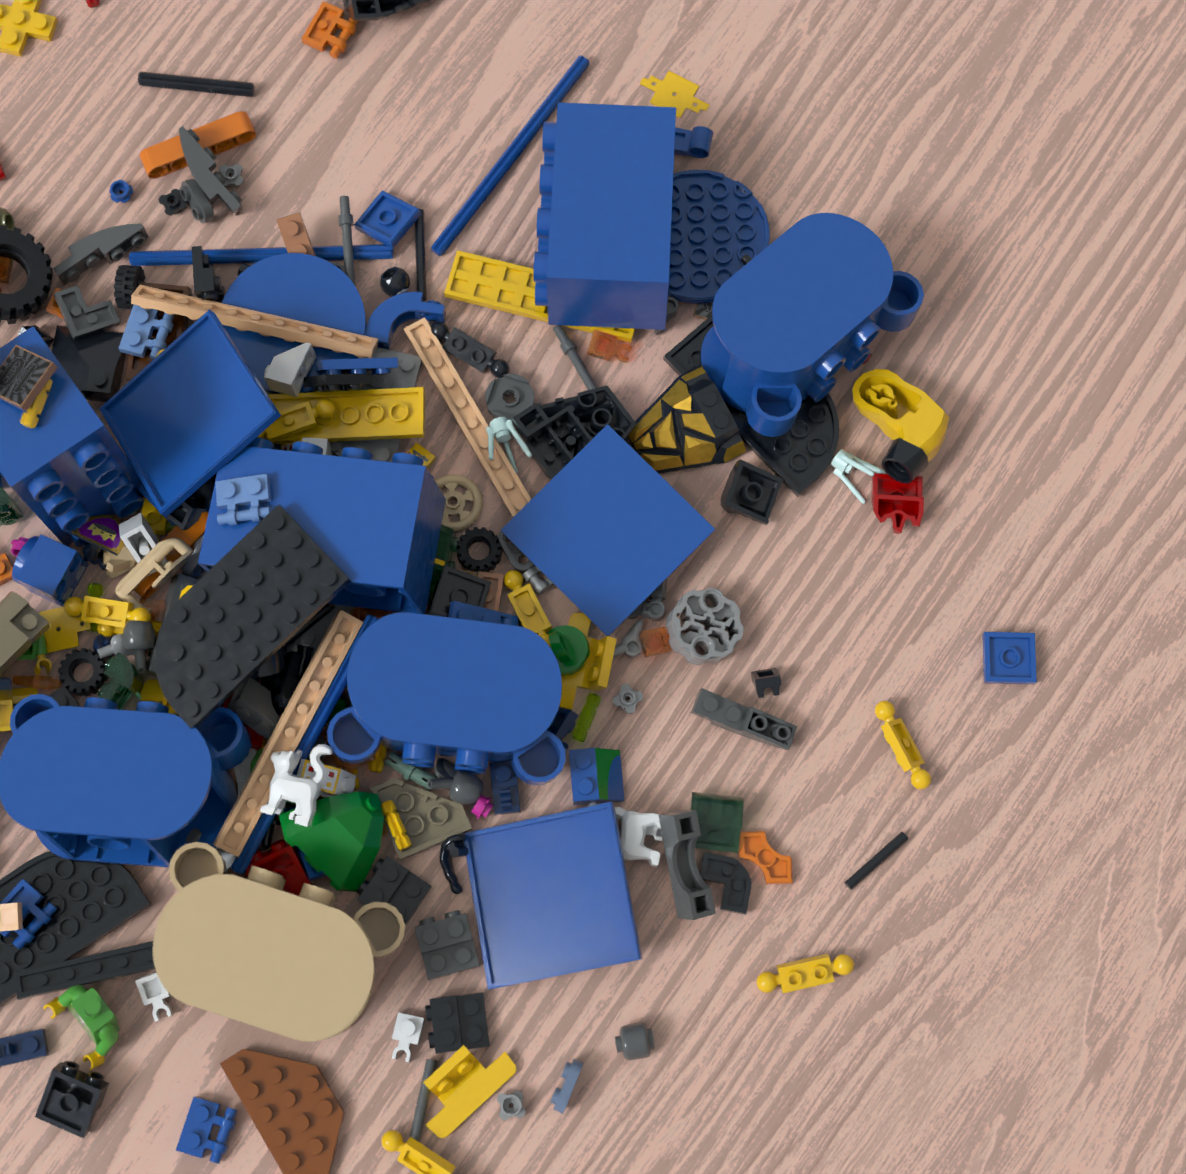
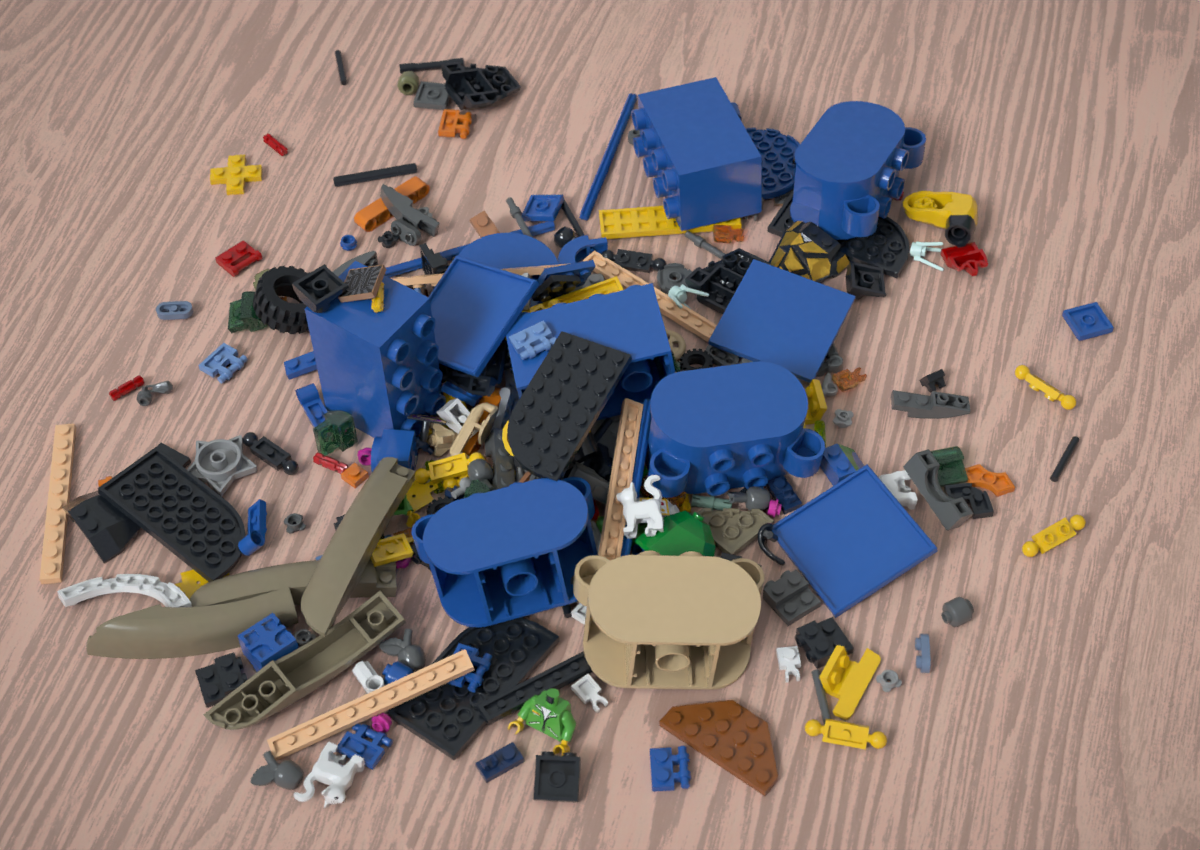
camera: 15 degrees left, 25 degrees down
(396, 825) = (720, 533): yellow axle -> none
(694, 612) = (875, 359): light grey connector -> none

